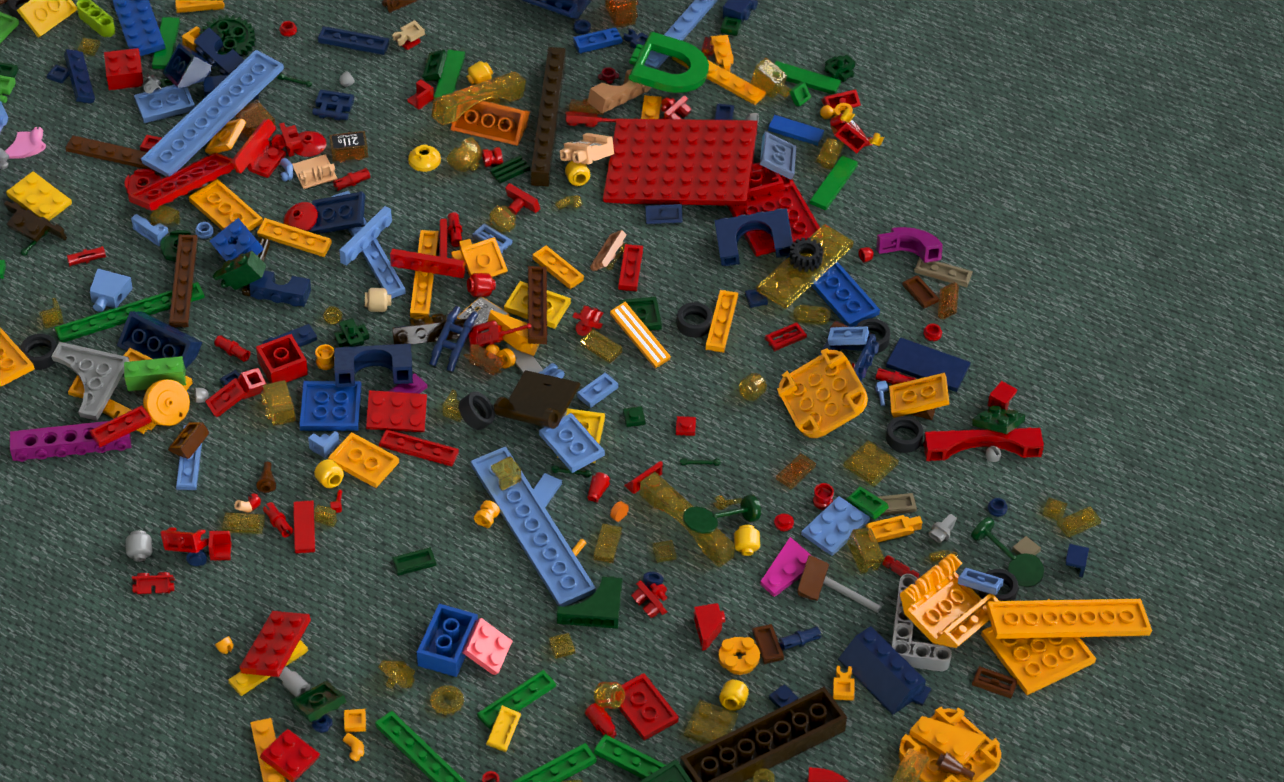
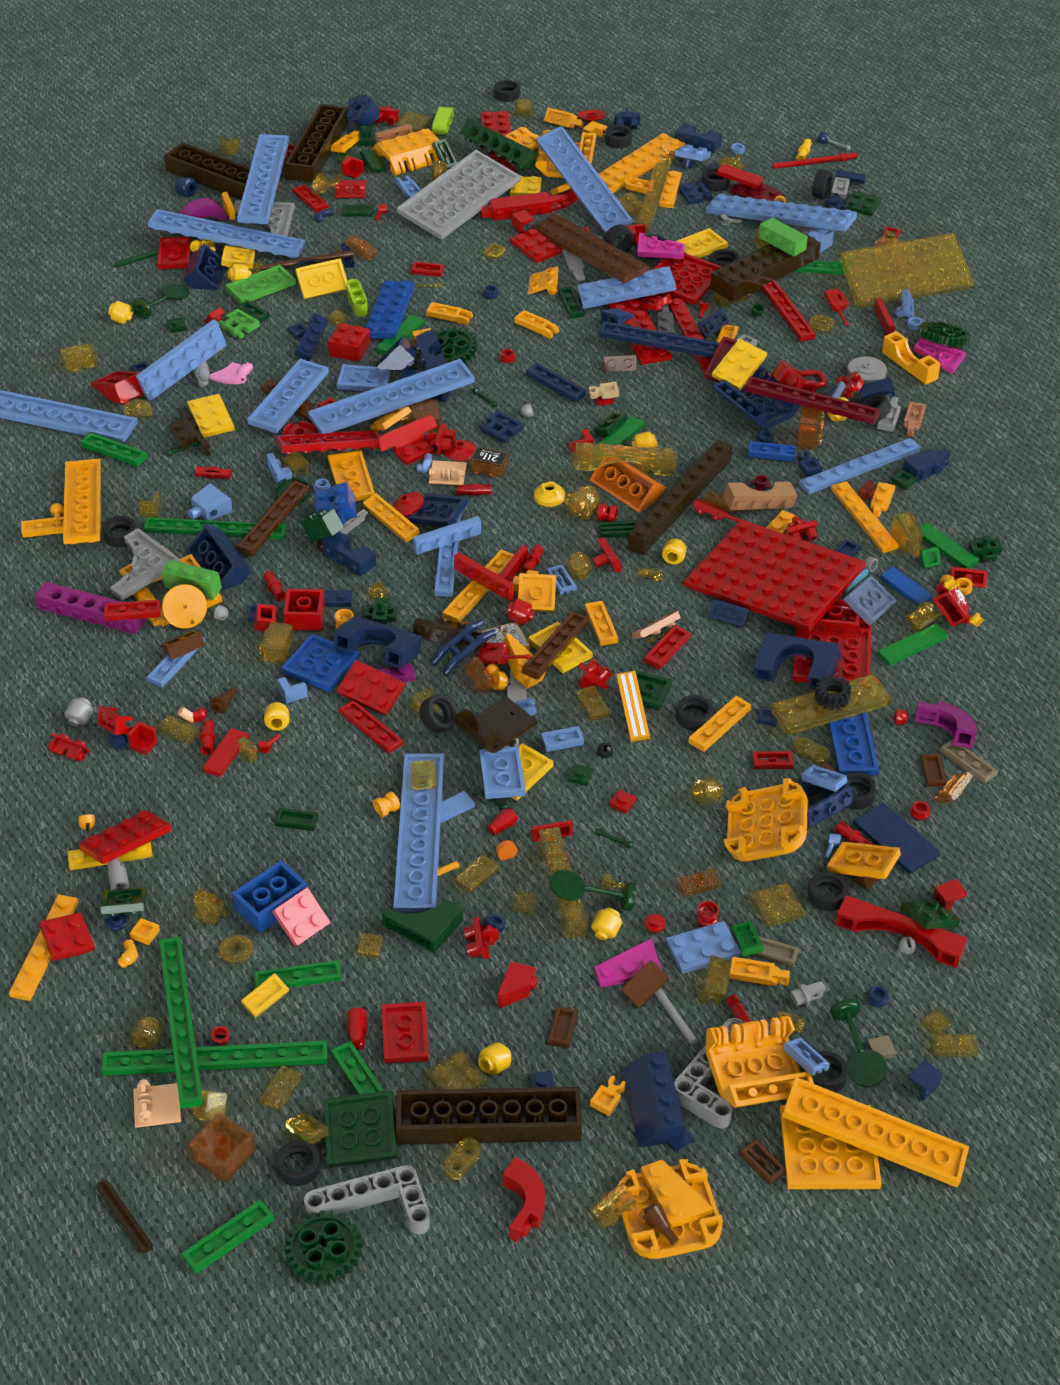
camera: 30 degrees right, 5 degrees down
(107, 148) = (288, 395): none -> medium blue plate
(151, 83) = (361, 358): dark grey hinge -> none
(226, 397) = (237, 621): red plate -> none
(364, 460) = (315, 717): light orange plate -> none
(377, 299) = (422, 591): tan head -> none
(590, 148) = (700, 535): light nougat hips -> none
(609, 695) = (375, 1006): clear yellow head -> none
(637, 387) = (609, 753): none -> black hinge
(665, 81) = (814, 507): green piece -> none
(744, 646) = (527, 1014): light orange plate -> none
(799, 638) = (595, 1034): dark blue pin -> none

